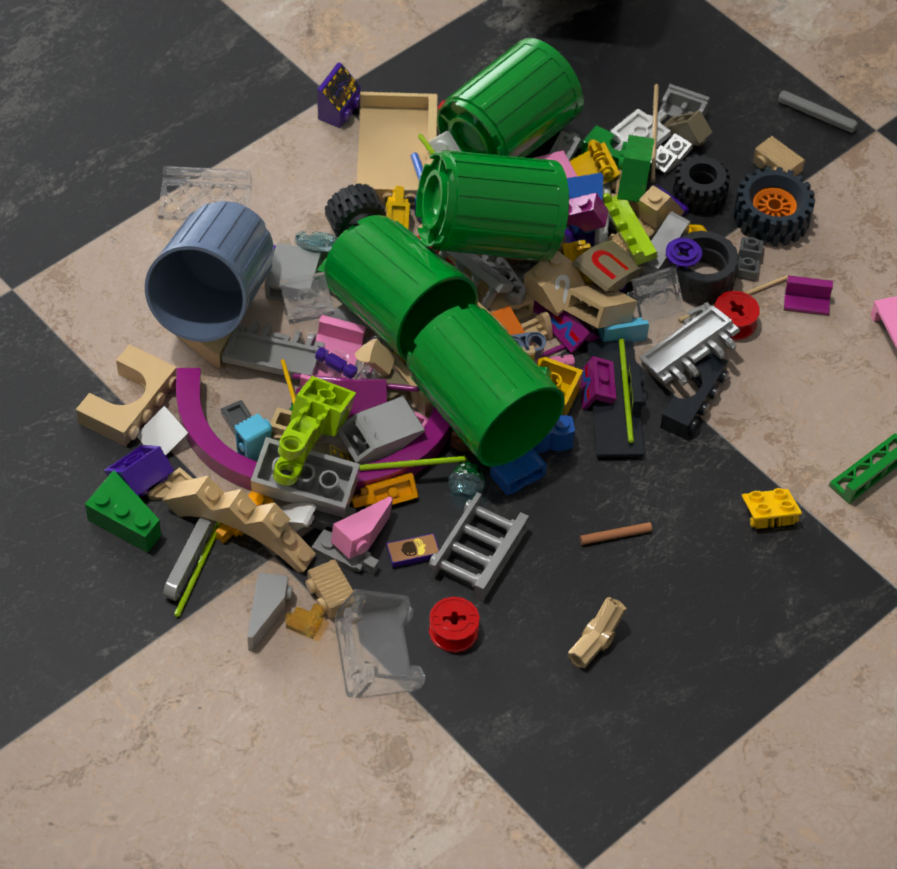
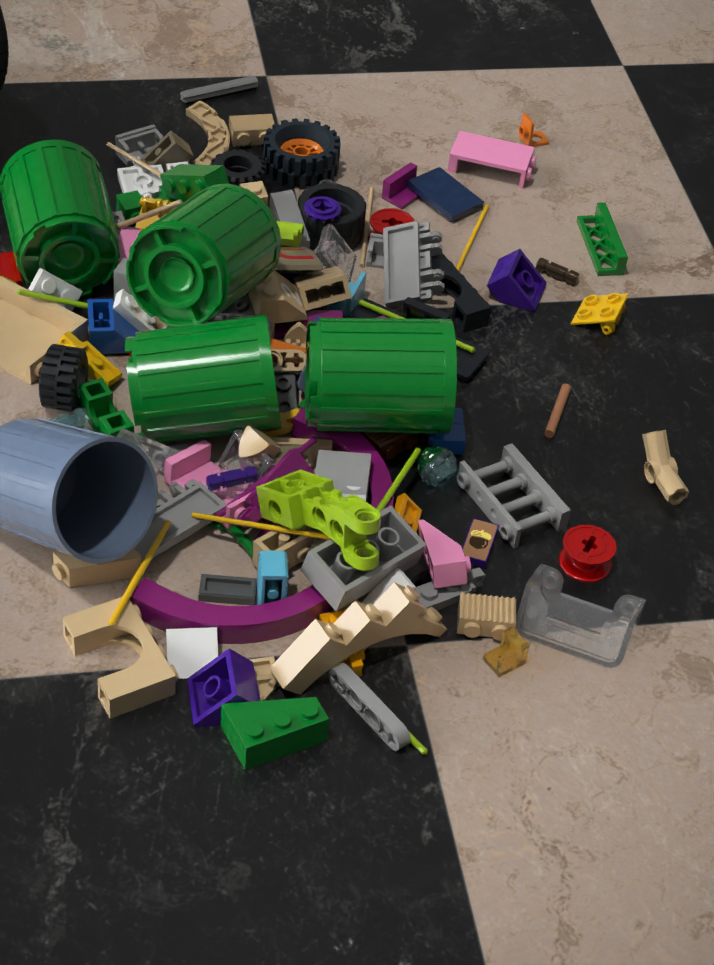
camera: 60 degrees left, 10 degrees down
(202, 361) = (129, 591): none -> yellow axle
(268, 605) = (471, 672): light grey slope -> none
(417, 164) = (53, 318): bar -> none
(570, 153) = (148, 214): none -> tan axle
(744, 151) = (215, 129): none -> tan tile
(751, 431) = (516, 281): none -> dark purple slope
(786, 375) = (470, 241): none -> yellow axle
(800, 453) = (557, 271): none -> dark brown axle
(828, 327) = (445, 194): none -> dark blue tile

